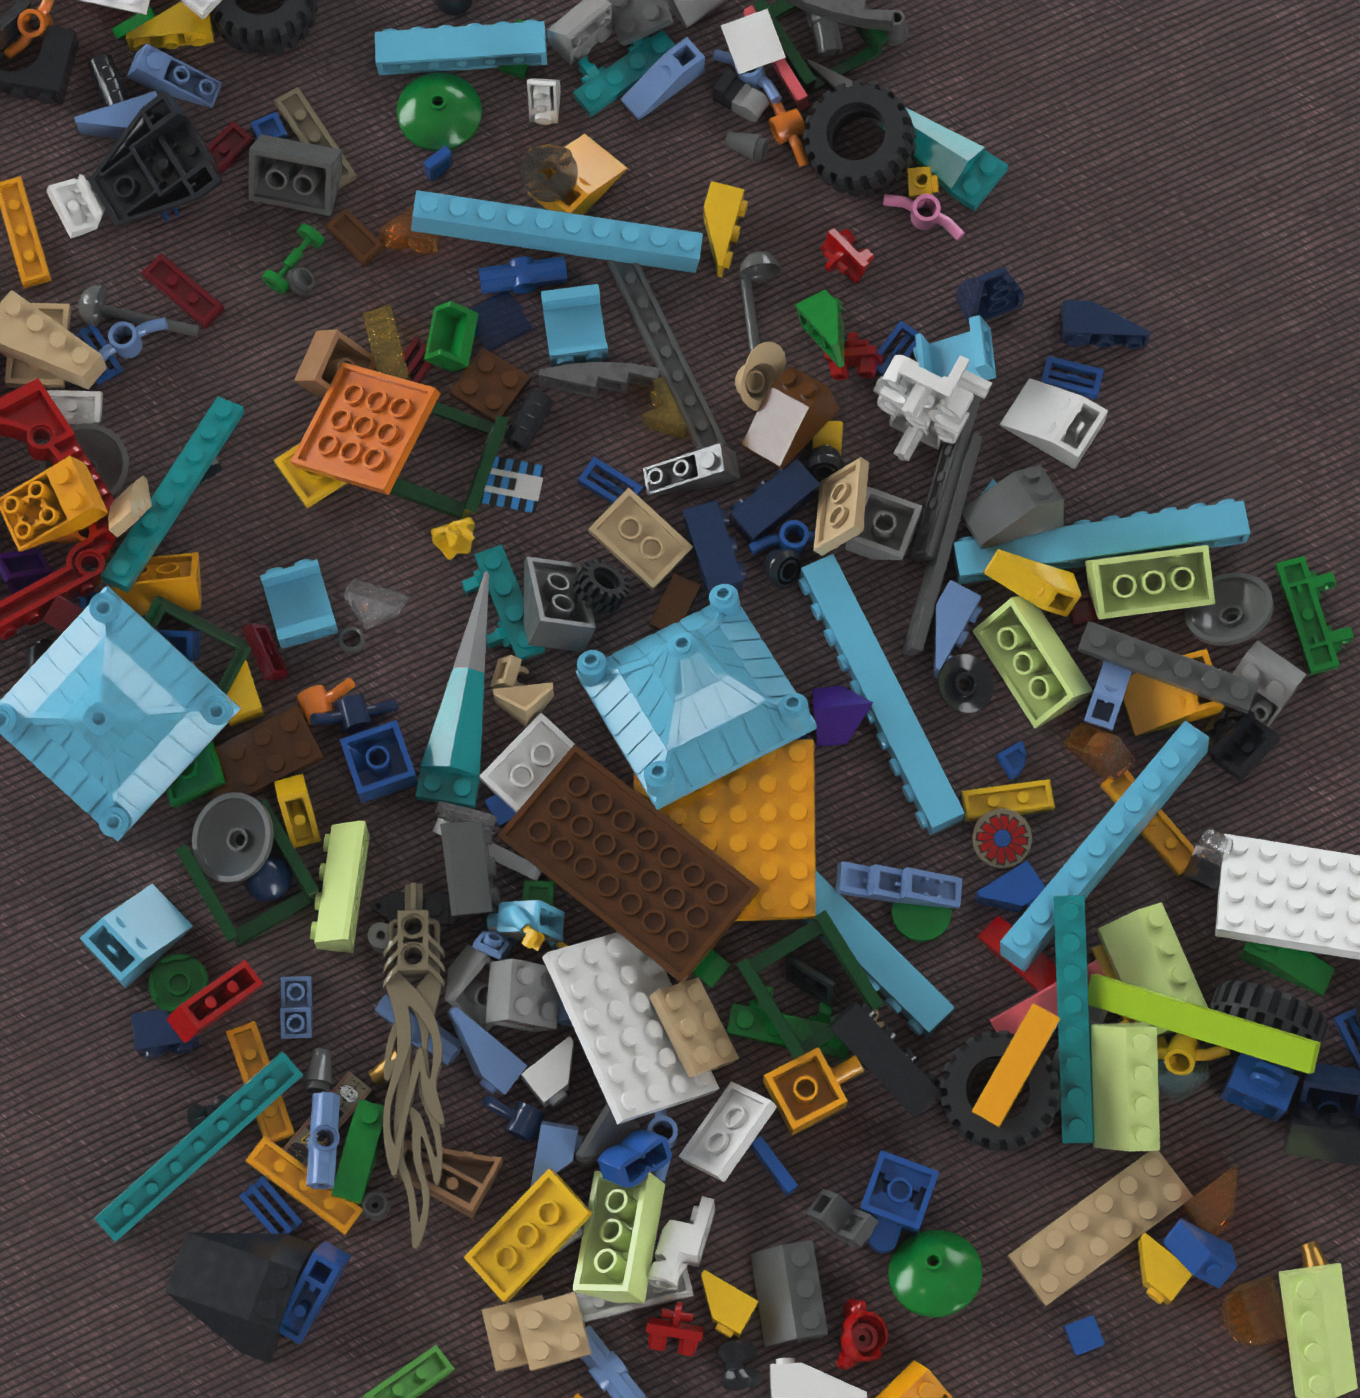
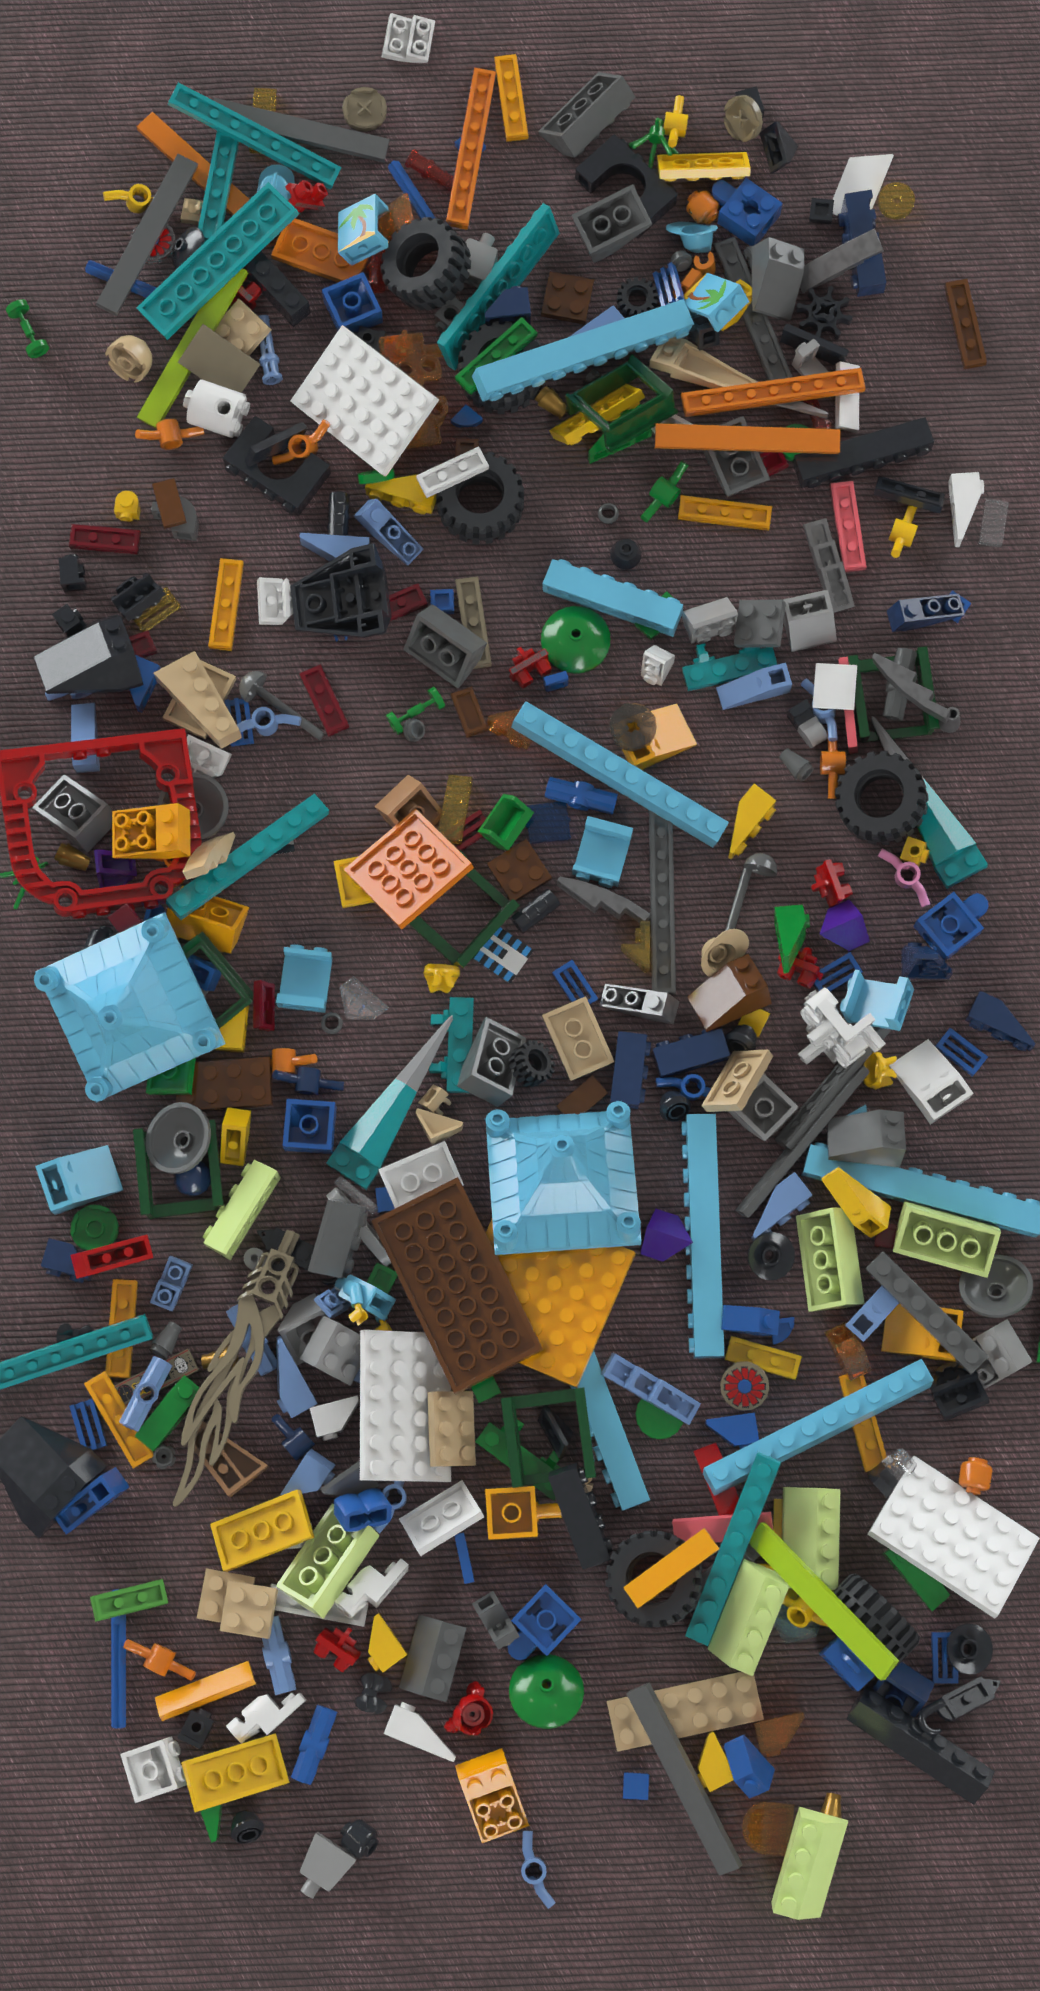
camera: 25 degrees right, 5 degrees up
(396, 155) = (526, 664): none -> red hips
(883, 294) = (845, 926): none -> dark purple slope
(976, 762) = (750, 1320): none -> blue slope
(992, 433) = (879, 1071): none -> yellow piece
(998, 239) = (952, 923): none -> blue brick
(1136, 1300) = (684, 1779): none -> dark grey tile
(1302, 825) = (975, 1475): none -> orange head

